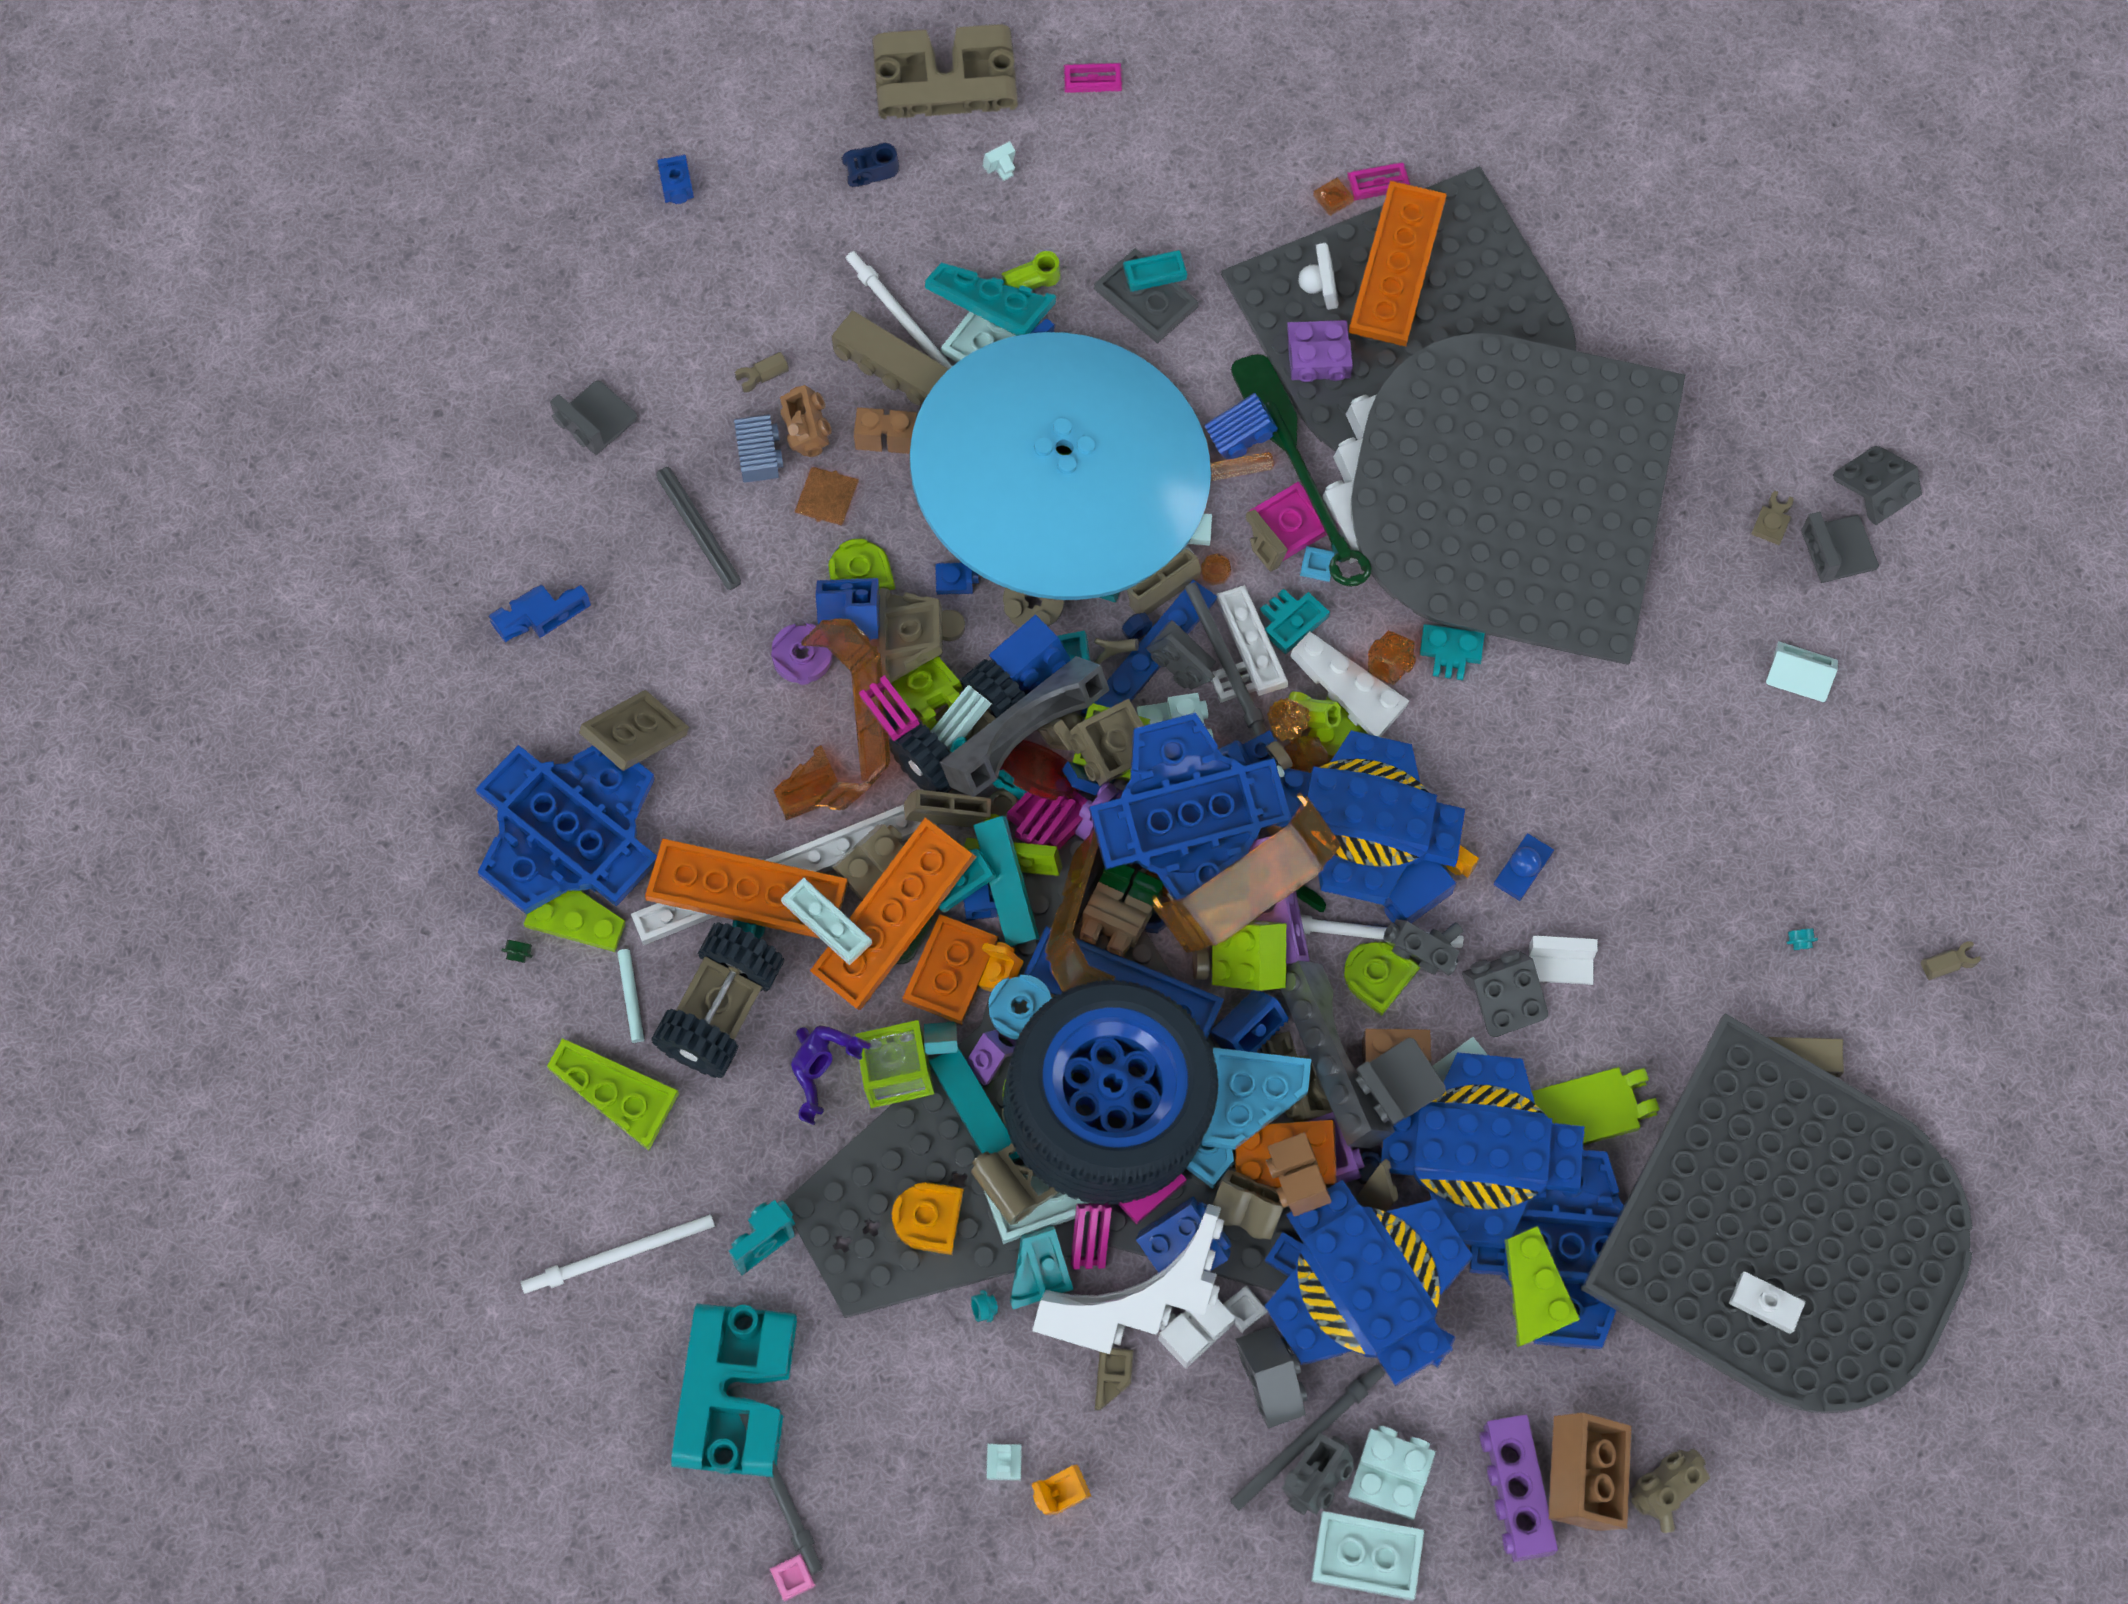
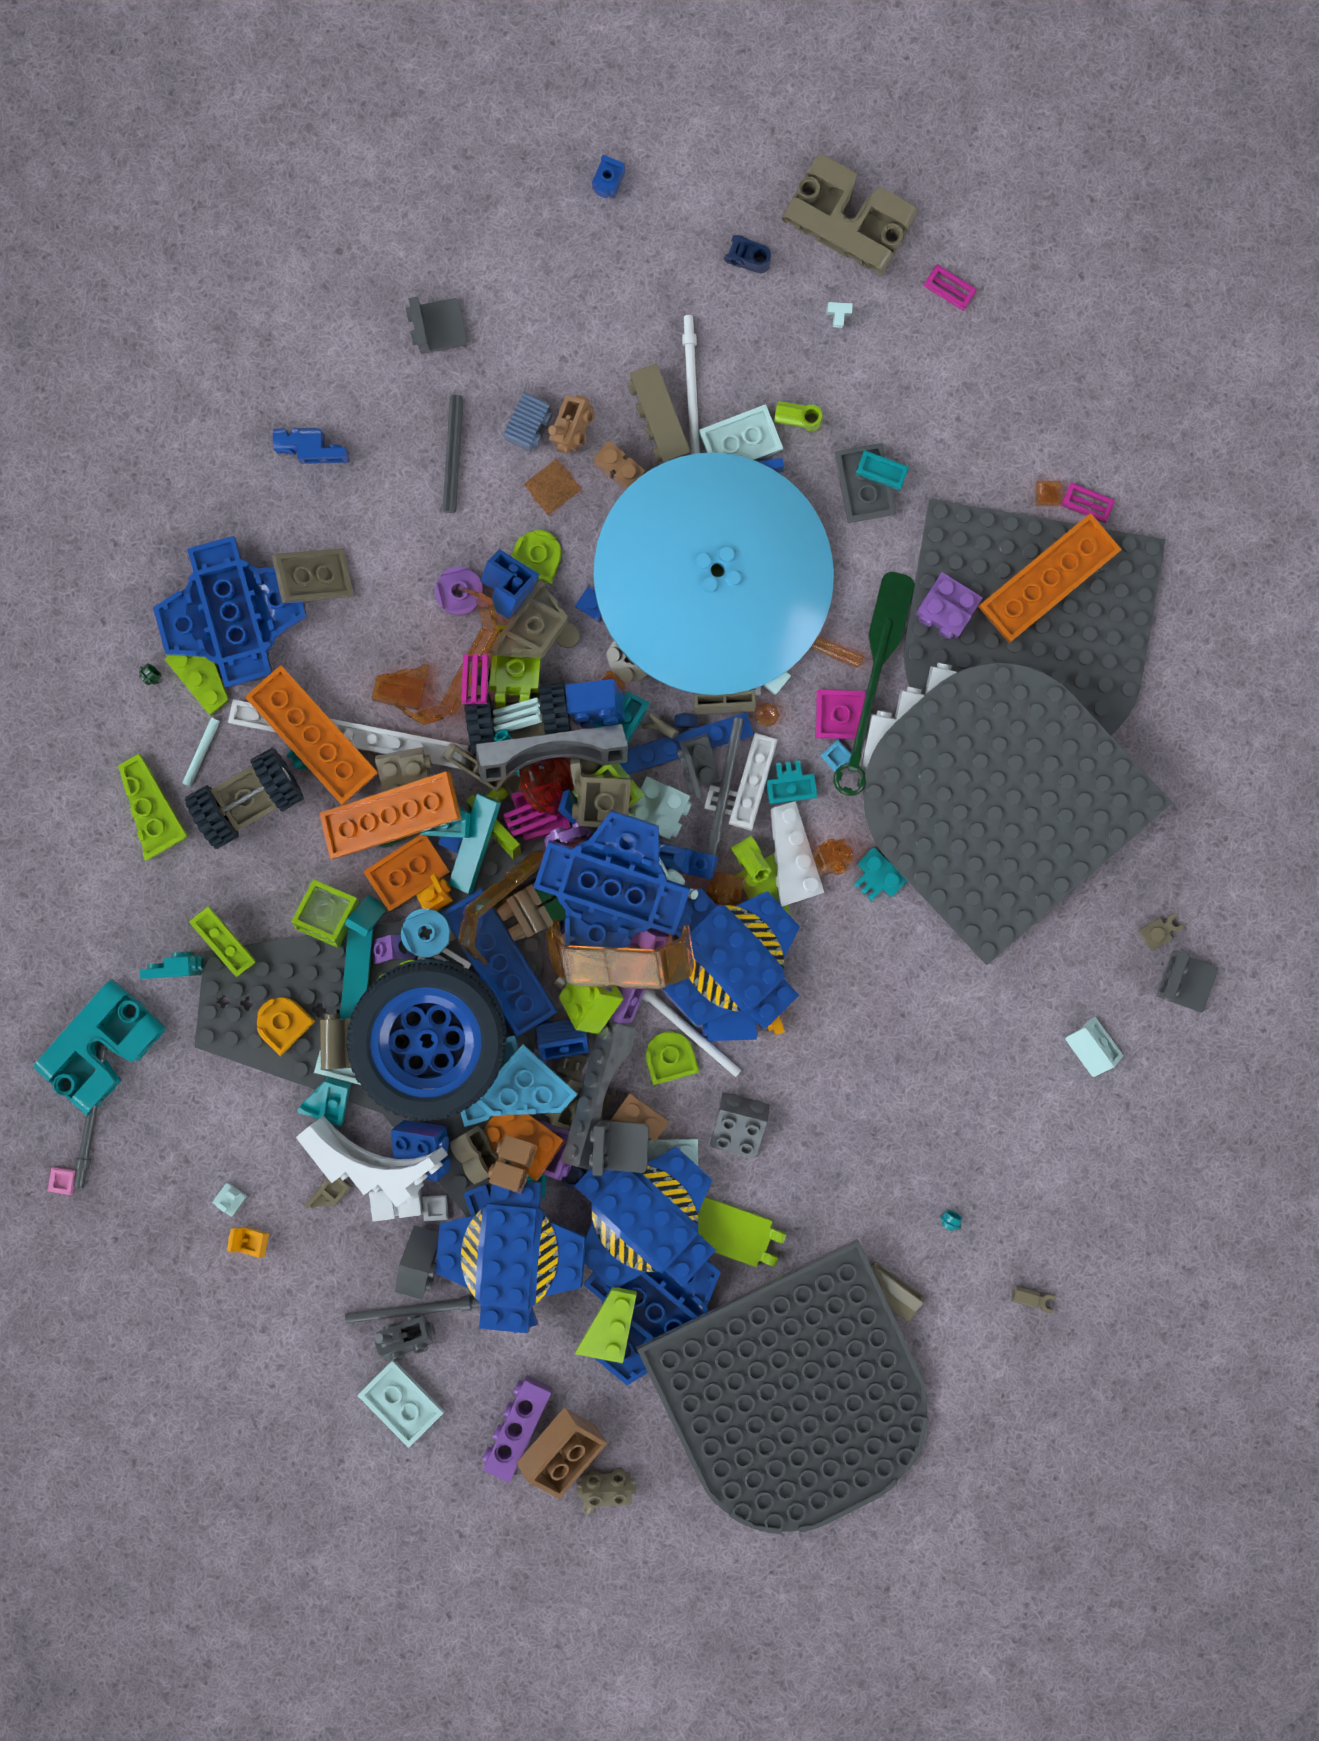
camera: 35 degrees right, 20 degrees up
(554, 1275) = (42, 902): white bar -> none
(762, 371) = (571, 365): dark tan bar -> none
(798, 1168) = (222, 941): none -> lime piece
(815, 1058) = (279, 876): dark purple piece -> none
(826, 921) = (343, 793): light aqua tile -> none
(984, 1306) = (281, 1099): teal plate -> none
(990, 299) = (760, 428): teal wing -> none
(1089, 1259) = (364, 1113): dark pink tile -> none
(1241, 427) = (855, 627): blue brick -> none
(1265, 542) = (811, 718): dark tan tile -> none
(1277, 752) = (704, 880): dark tan tile -> none
(1288, 719) = (731, 858): clear orange piece -> none
(1318, 278) = (989, 554): white tile -> none
(1378, 1190) = (563, 1197): dark tan tile -> none
(1392, 1472) = (451, 1365): light aqua plate -> none
(1430, 948) = (709, 1069): dark grey brick -> none
(1523, 867) = (813, 1052): blue tile -> none
(1563, 959) = (790, 1130): white panel -> none
(1767, 1302) = (742, 1433): white plate -> none
(1882, 480) = (1251, 954): dark grey bracket -> none

